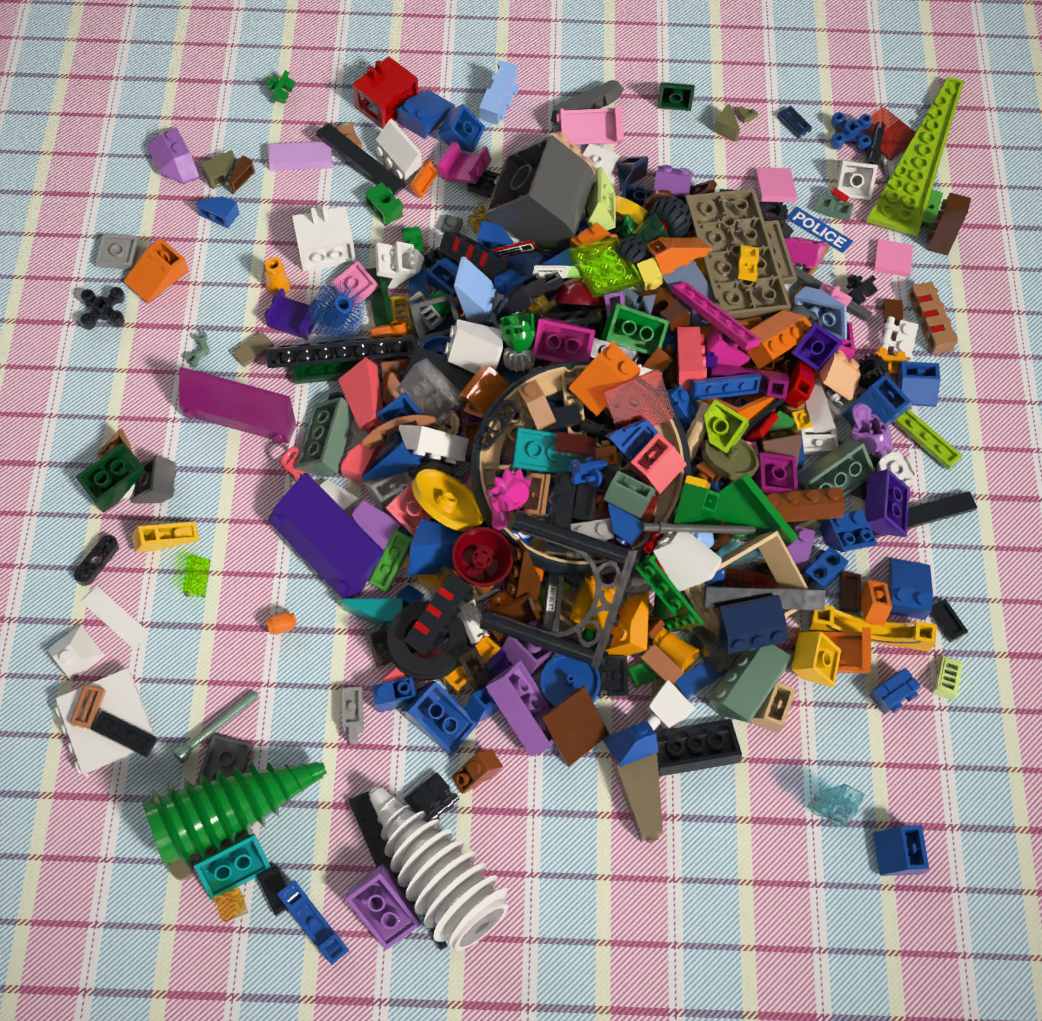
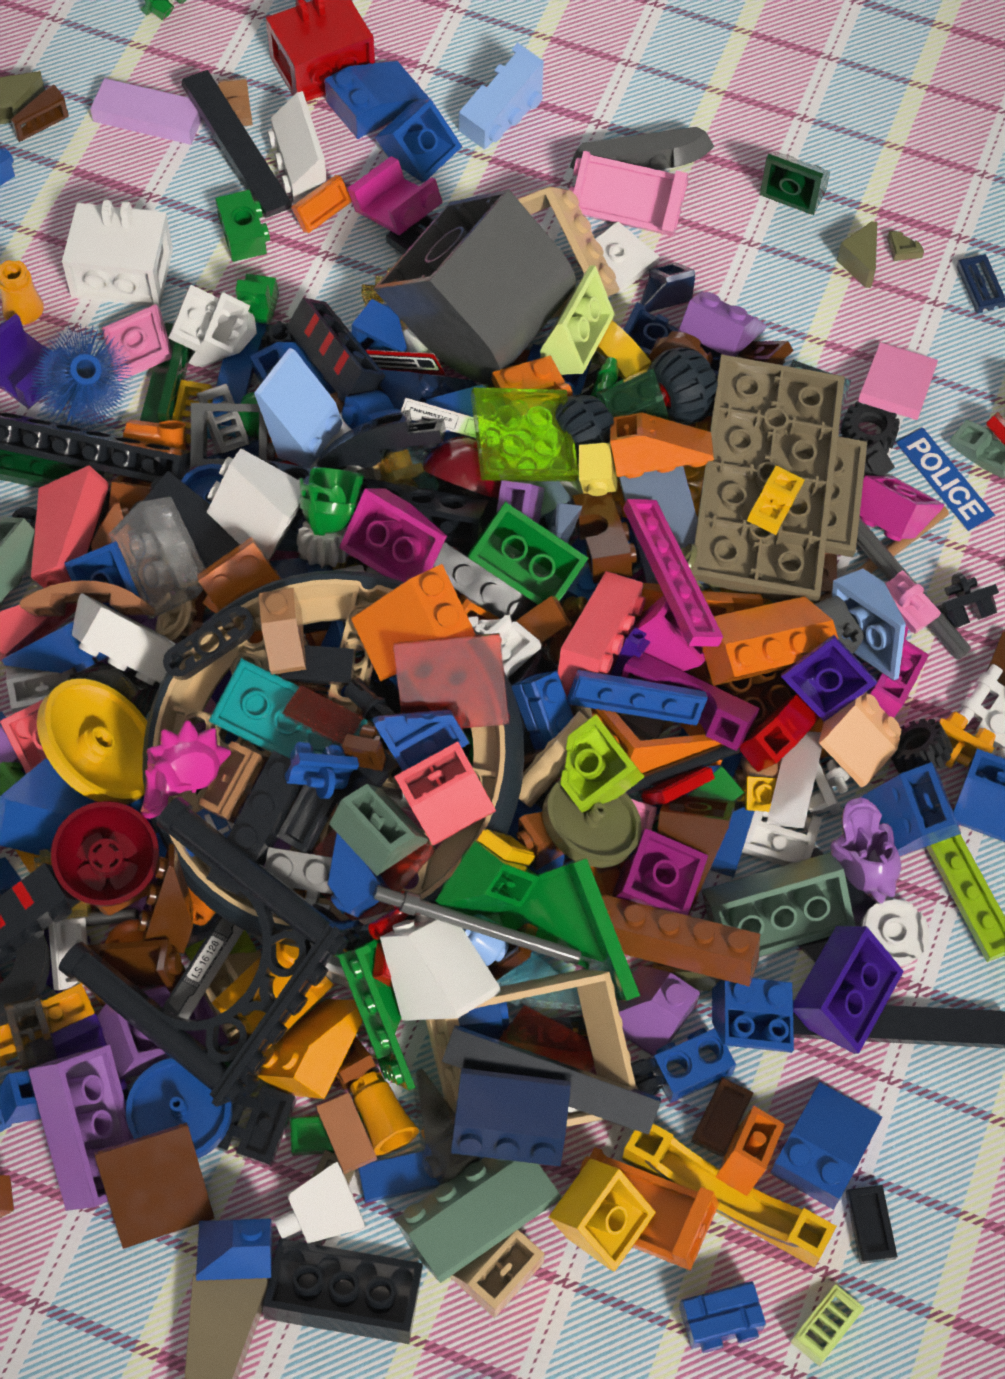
camera: 20 degrees right, 0 degrees up
(452, 223) = (336, 292): dark grey plate -> none

